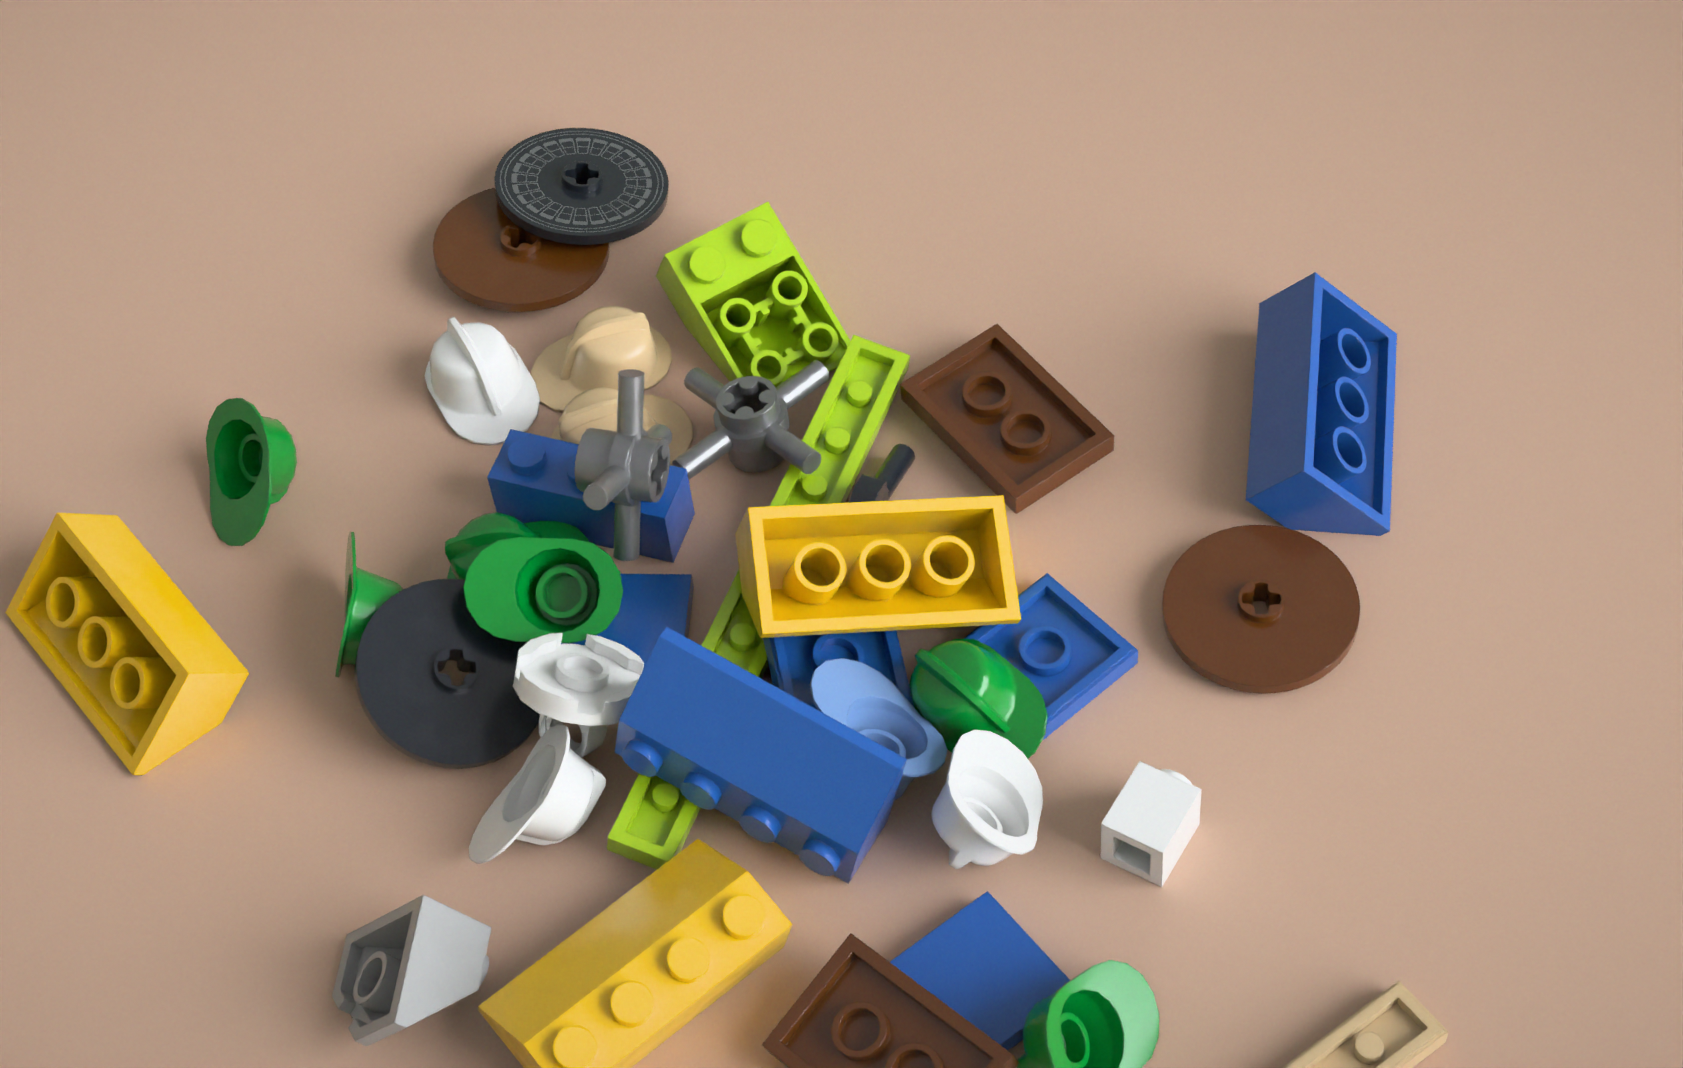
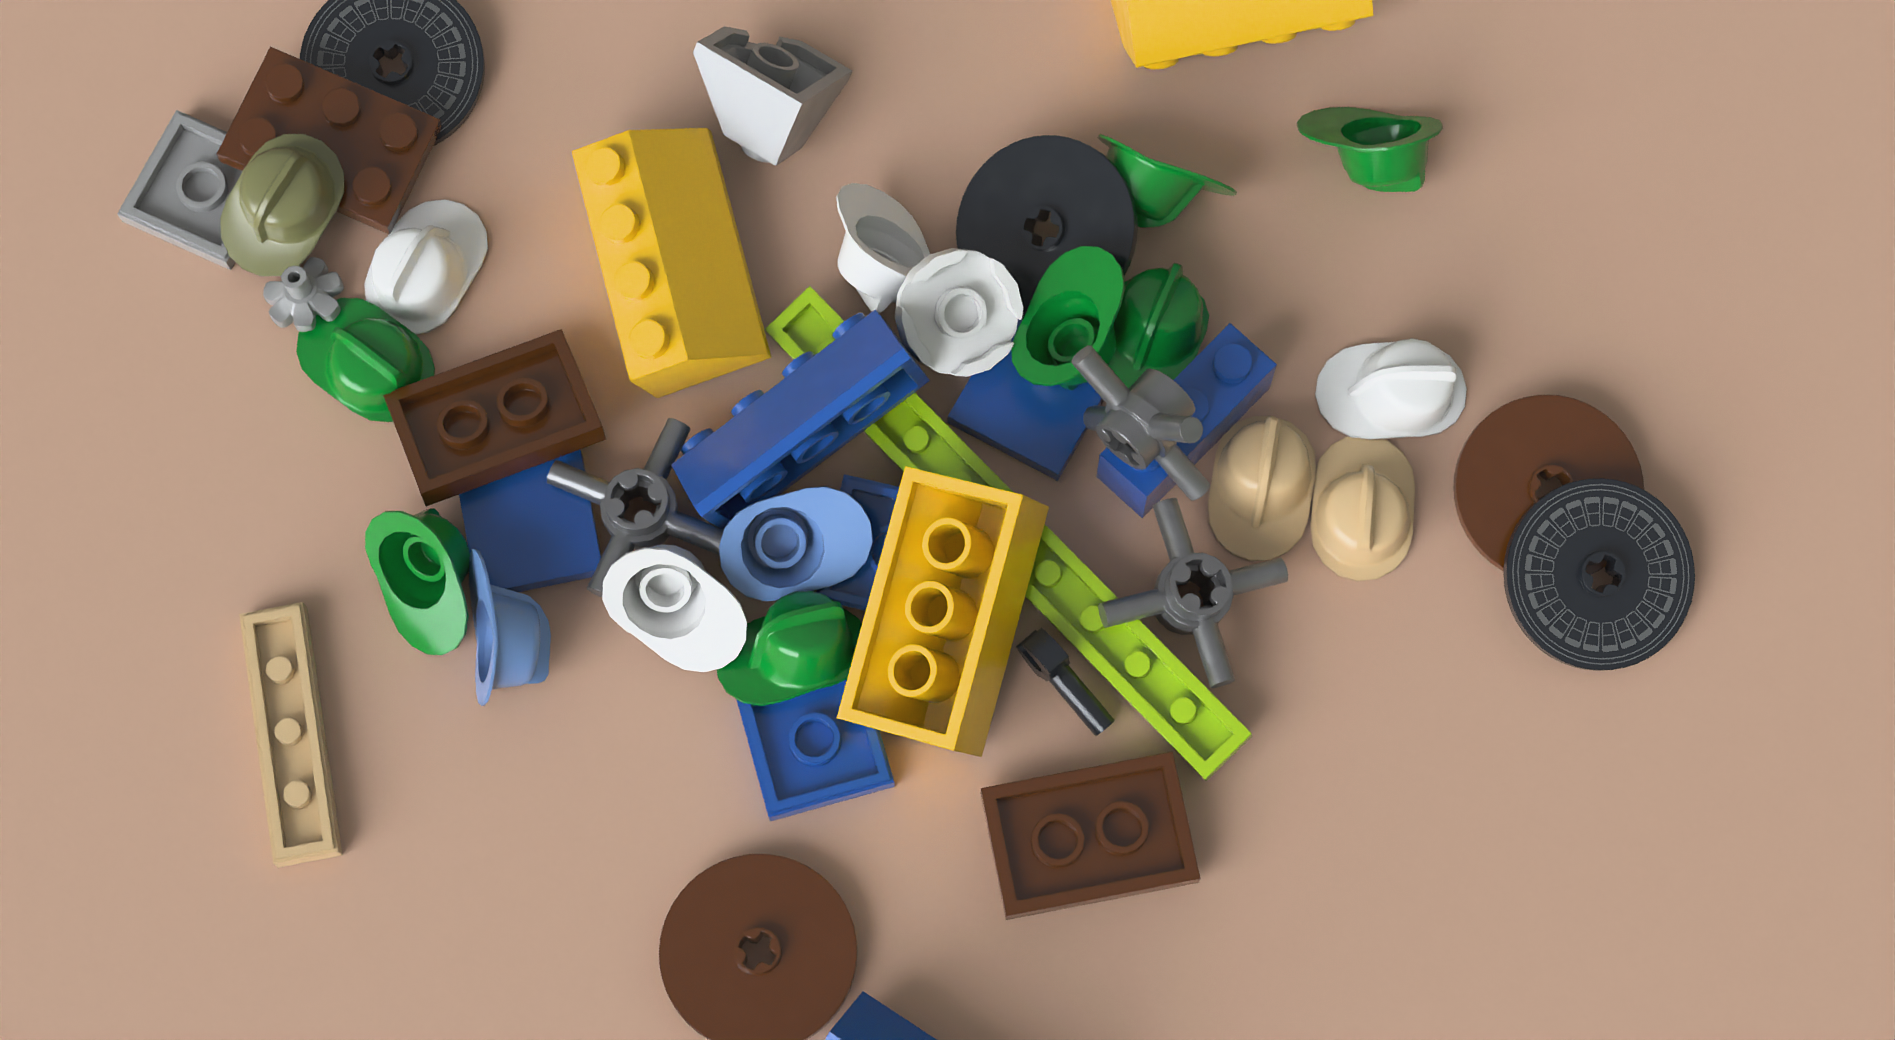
camera: 110 degrees right, 20 degrees up
(752, 300) = (1345, 666): lime slope -> none
(909, 855) = (646, 483): none -> flat silver bar
(1111, 921) = (509, 634): none -> medium blue piece
(1151, 822) = (587, 731): white brick -> none

